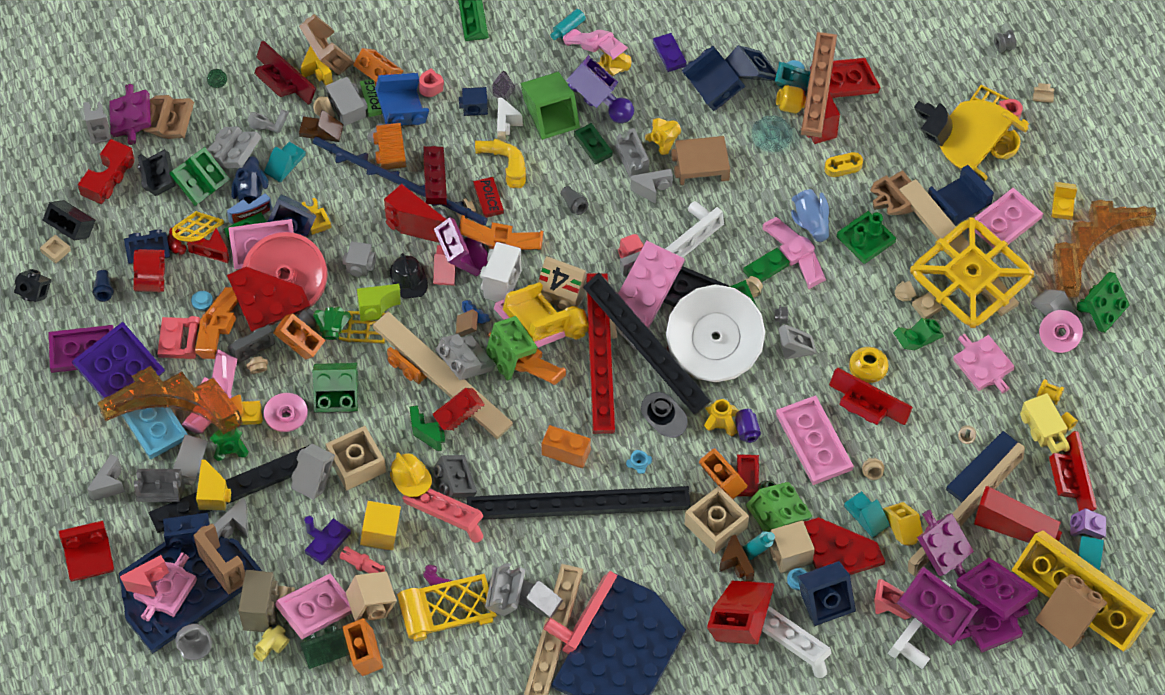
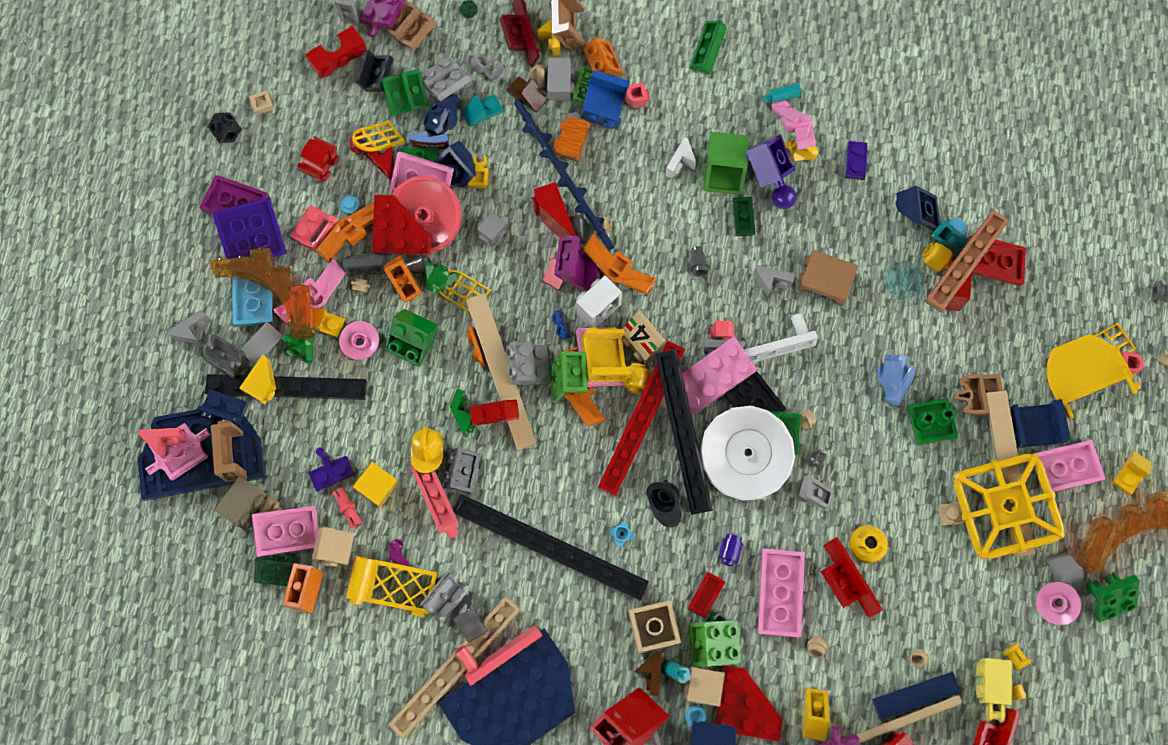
camera: 30 degrees right, 15 degrees up
(68, 220) = (282, 82): black brick -> none
(87, 550) = (141, 385): red bracket -> none
(102, 287) = (279, 154): dark blue cone -> none
(155, 241) = (336, 135): dark blue bracket -> none
(195, 636) = (177, 510): light grey hair -> none
(235, 518) = (271, 416): light grey slope -> none
(272, 639) = (241, 541): light yellow plate -> none
(312, 471) = (347, 407): light grey brick -> none
(356, 458) = (389, 412): tan brick -> none
(376, 300) = (483, 275): lime arch -> none
(410, 276) = (525, 265): black piece -> none
(434, 175) = (593, 183): dark red plate -> none
(466, 323) = (548, 332): medium nougat tile -> none
(474, 101) = (664, 129): dark blue brick -> none
(488, 197) = (629, 223): red tile -> none
(503, 86) = (696, 126): clear purple slope -> none
(516, 165) = (664, 211): yellow piece -> none
(566, 446) = (566, 490): orange brick -> none
(632, 153) = (771, 242): light grey hinge -> none
(664, 134) = (808, 237): yellow rock -> none
(713, 78) = (879, 205): dark blue panel -> none
(721, 416) = (712, 530): yellow rock -> none
(723, 473) = (682, 587): orange brick -> none
(767, 265) = (830, 404): green plate -> none
(797, 250) = (864, 402): bright pink plate -> none
(843, 164) = (950, 345): yellow beam -> none
(867, 513) = (789, 687): teal slope -> none
(905, 291) = (938, 491): tan plate -> none
(920, 335) = (928, 539): green slope -> none
(937, 124) = (1058, 344): black brick -> none
(983, 363) = (971, 596): bright pink plate -> none
(1007, 145) = (1109, 396): yellow hair -> none

